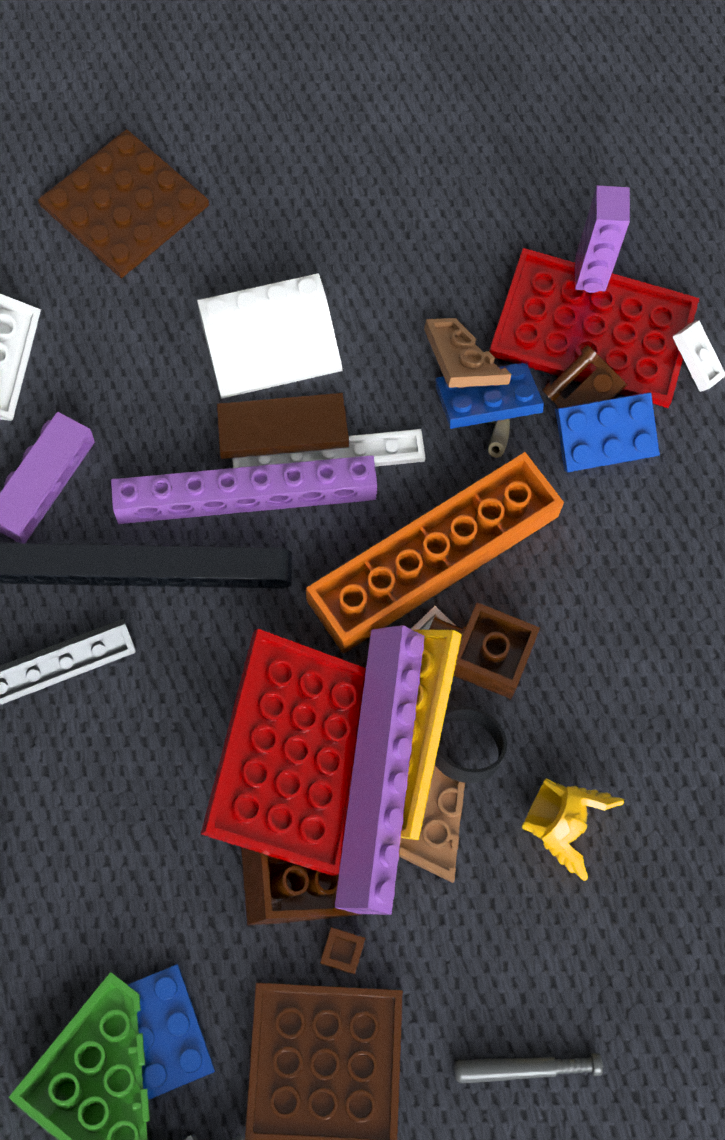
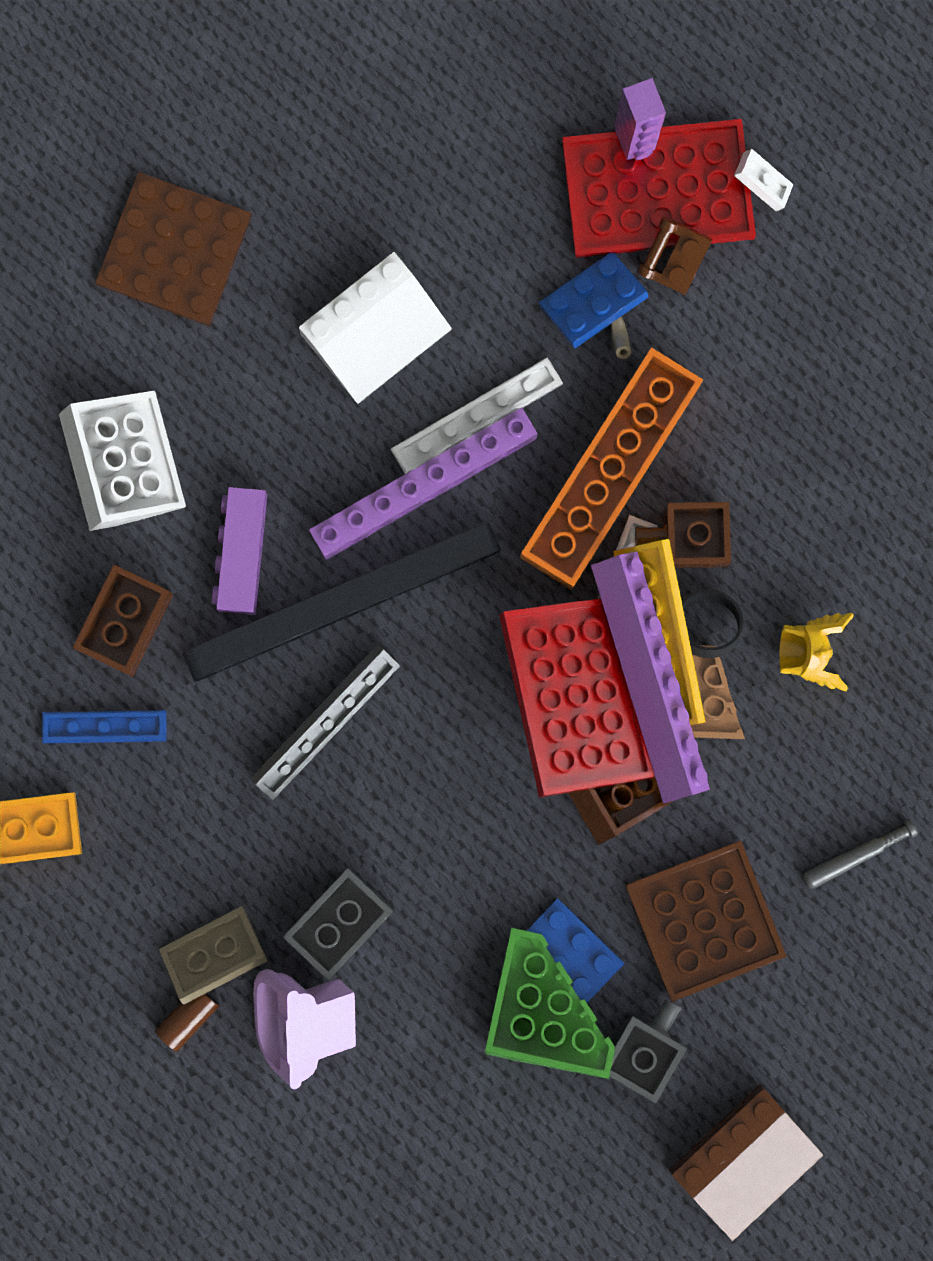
camera: 25 degrees left, 15 degrees up
(282, 425) = (426, 409): reddish brown tile -> none
(342, 951) = (681, 831): reddish brown plate -> none
(459, 356) = (553, 275): medium nougat wing -> none
(607, 432) = (711, 290): plate -> none

